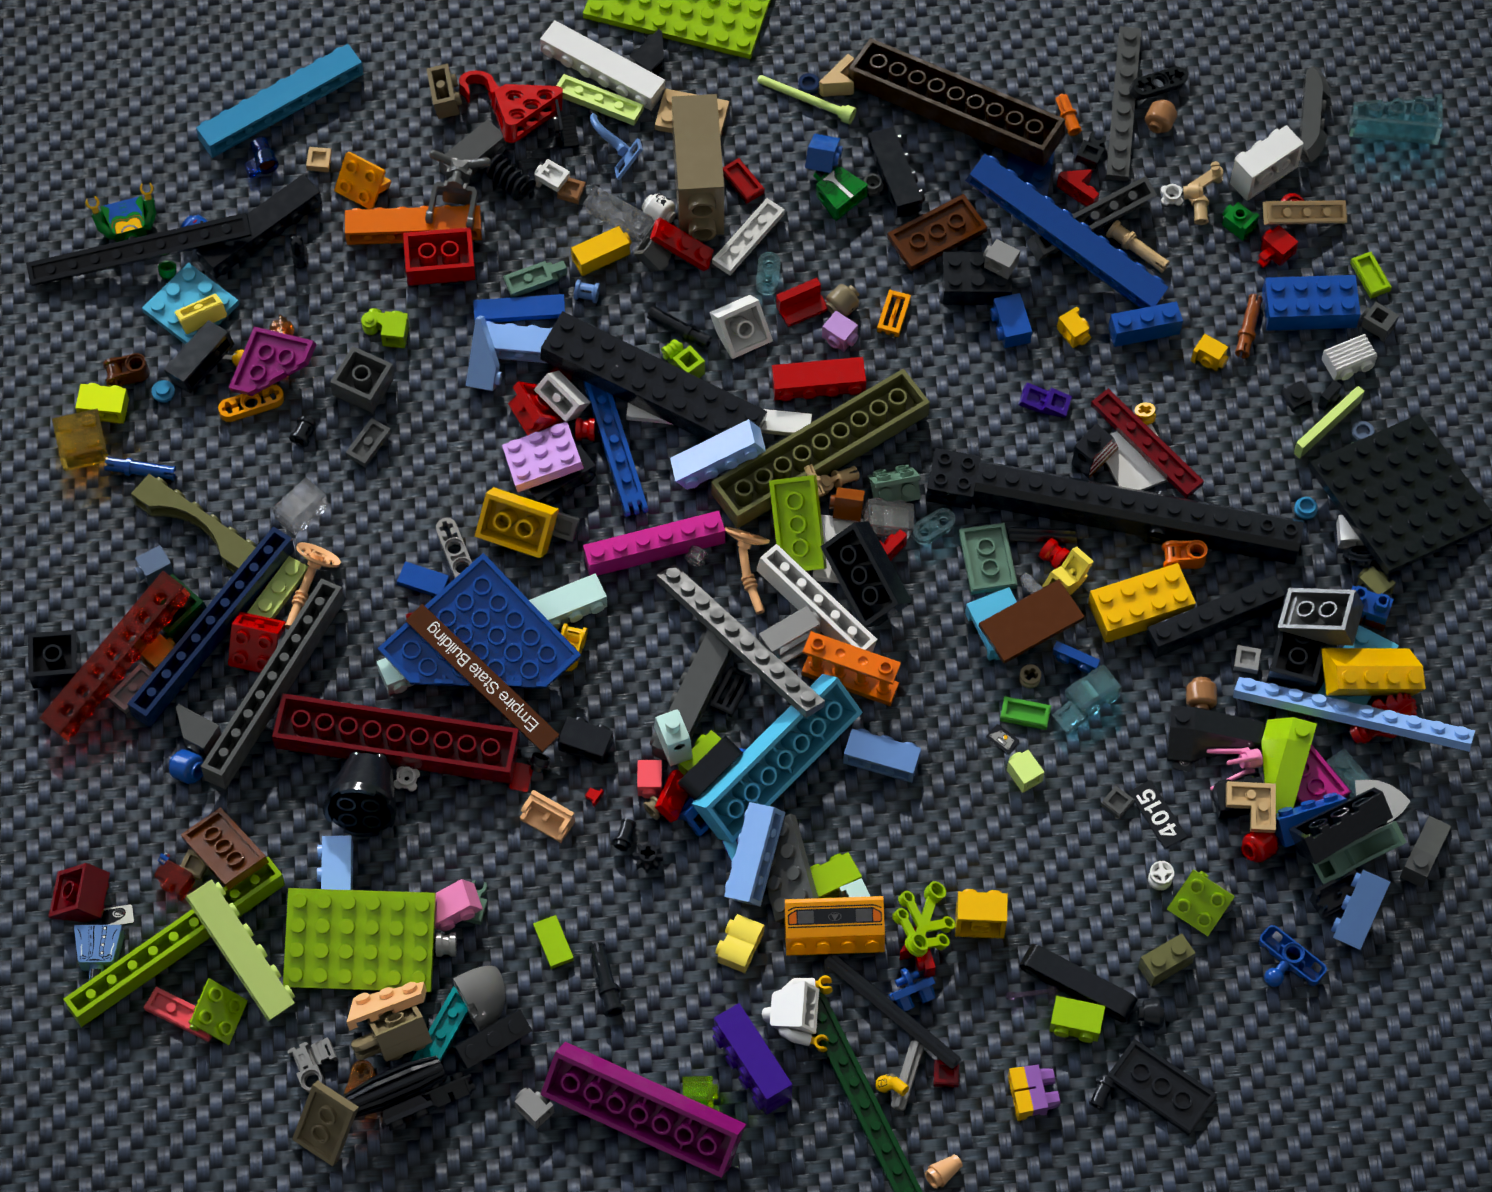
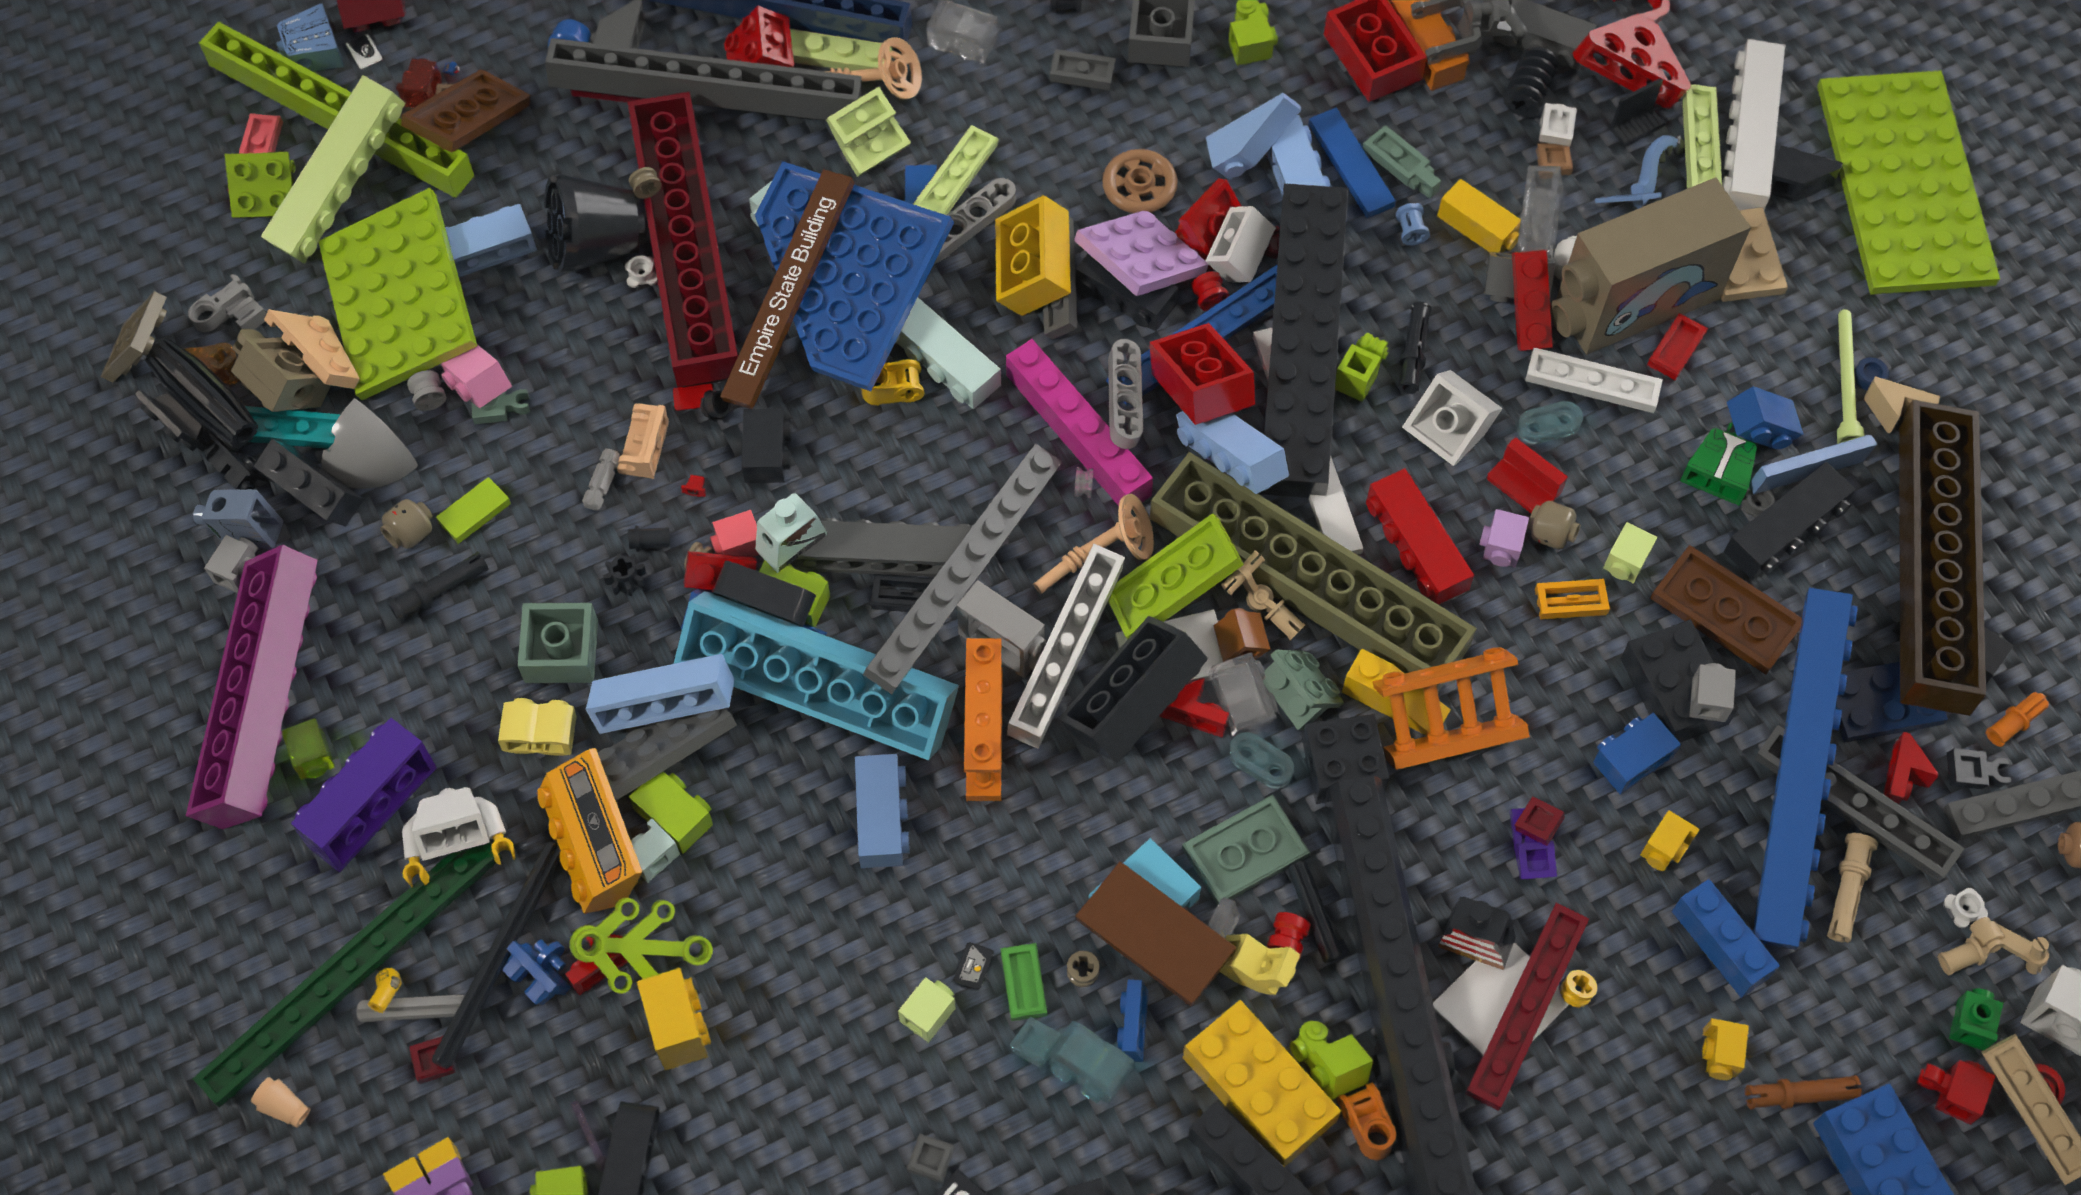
camera: 70 degrees right, 0 degrees up
(354, 741) = (644, 182): none -> dark tan bush
(364, 592) = (868, 131): none -> yellowish green slope
(421, 552) = (957, 171): none -> yellowish green tile
(472, 424) = (1131, 159): none -> medium nougat plate
(503, 1083) = (240, 515): none -> sand blue torso
(551, 984) = (406, 524): none -> dark tan head
(564, 852) = (601, 479): none -> light grey axle
(660, 450) = (1202, 373): none -> red brick
(676, 510) = (1125, 393): none -> light grey beam
(686, 910) = (558, 643): none -> sand green brick
(863, 146) = (1801, 466): none -> medium blue tile
(878, 267) = (1629, 553): none -> yellowish green brick
(918, 436) = (1359, 686): none -> yellow slope
(965, 400) = (1472, 734): none -> orange fence
(1037, 388) = (1539, 821): none -> dark red plate
(1145, 559) = (1333, 1066): none -> lime brick

